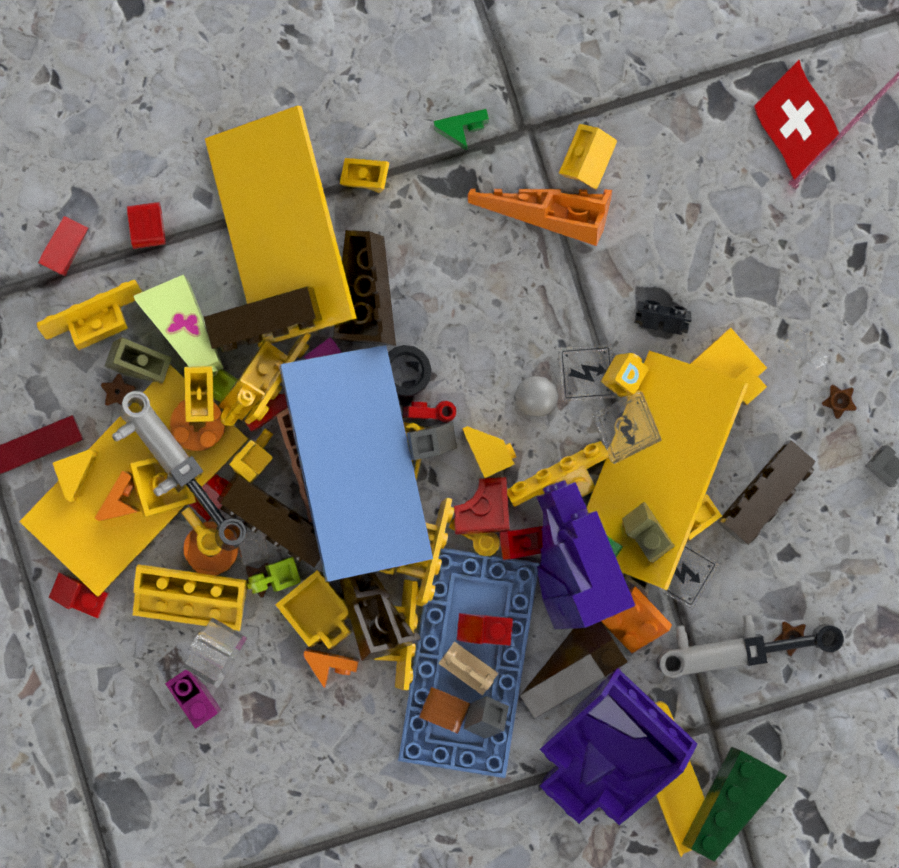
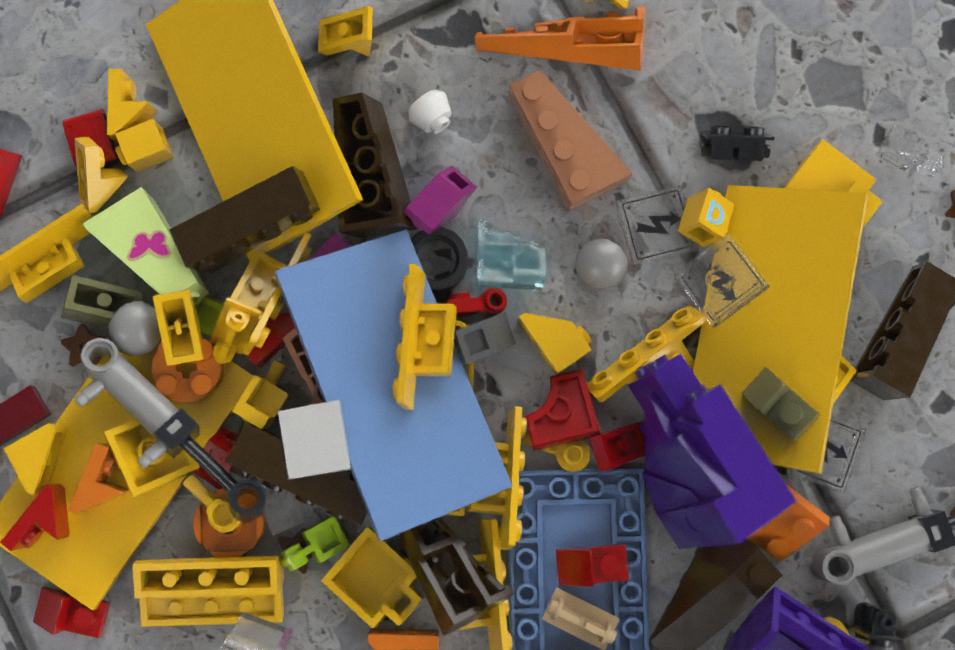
camera: 10 degrees left, 5 degrees down
(75, 515) = (45, 512): none -> red slope
(147, 259) = (94, 183): none -> yellow slope
(164, 386) = (135, 329): none -> light grey hair
(177, 212) = (122, 108): none -> yellow slope
(188, 239) = (143, 146): none -> yellow brick
(289, 497) = (314, 439): none -> white sticker
(386, 436) = (425, 338): none -> yellow bracket
(416, 326) = (440, 200): none -> magenta slope
(422, 251) = (430, 112): none -> white cone
(462, 380) = (508, 260): none -> clear light blue slope
(526, 299) = (567, 145): none -> nougat wedge
(690, 712) = (874, 625): none -> black hinge

